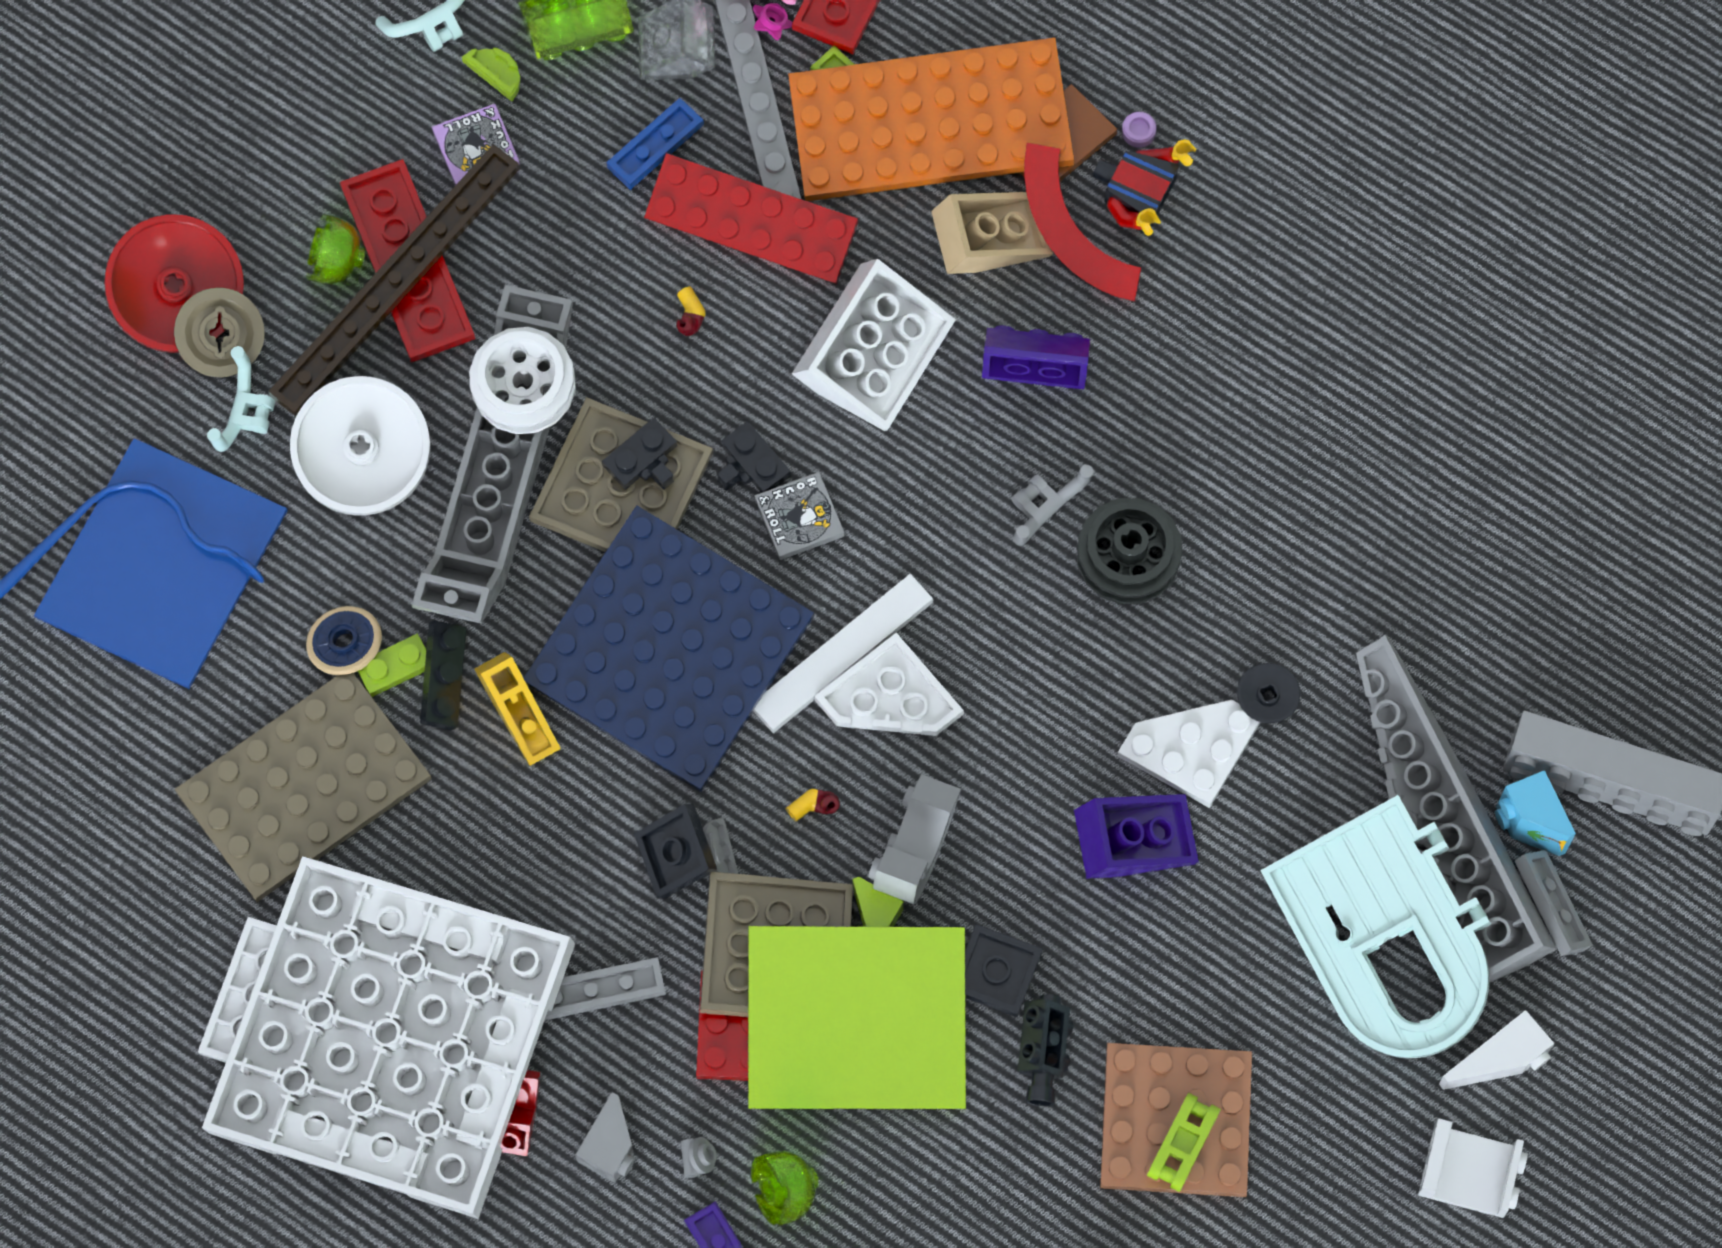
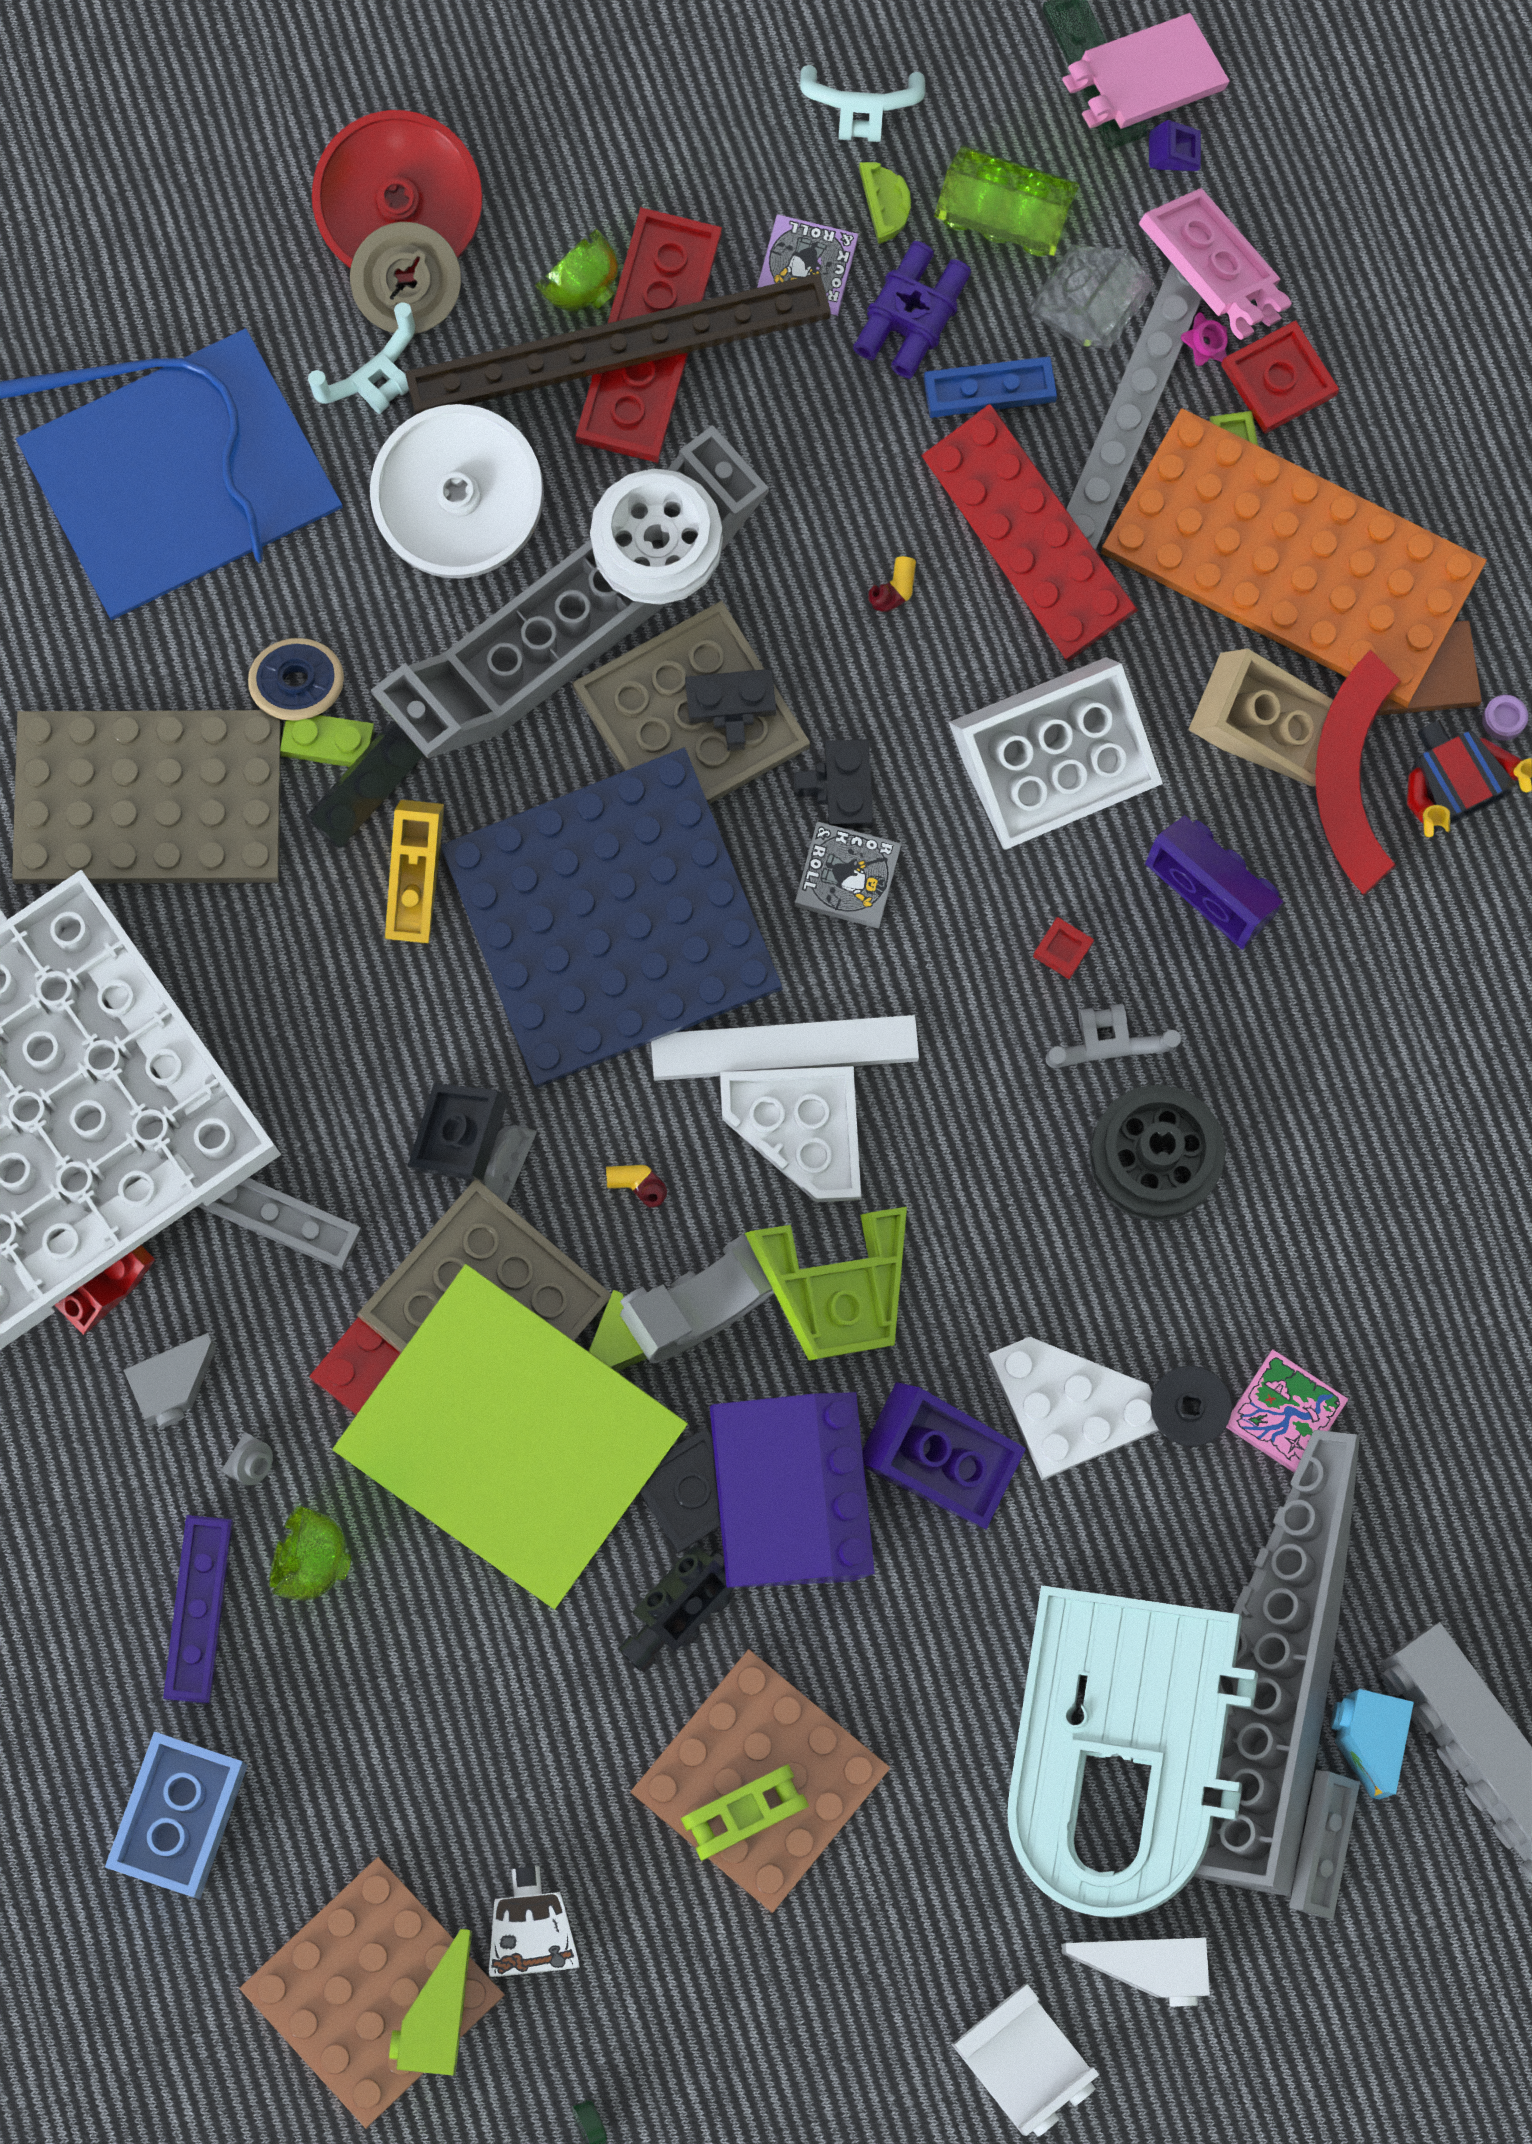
camera: 30 degrees right, 5 degrees up
(582, 133) = (923, 324): none -> dark purple pin
(972, 465) = (1063, 948): none -> red plate
(1003, 785) = (838, 1304): none -> lime wing
(1061, 922) = (792, 1490): none -> dark purple slope
(1327, 655) = (1284, 1409): none -> tile

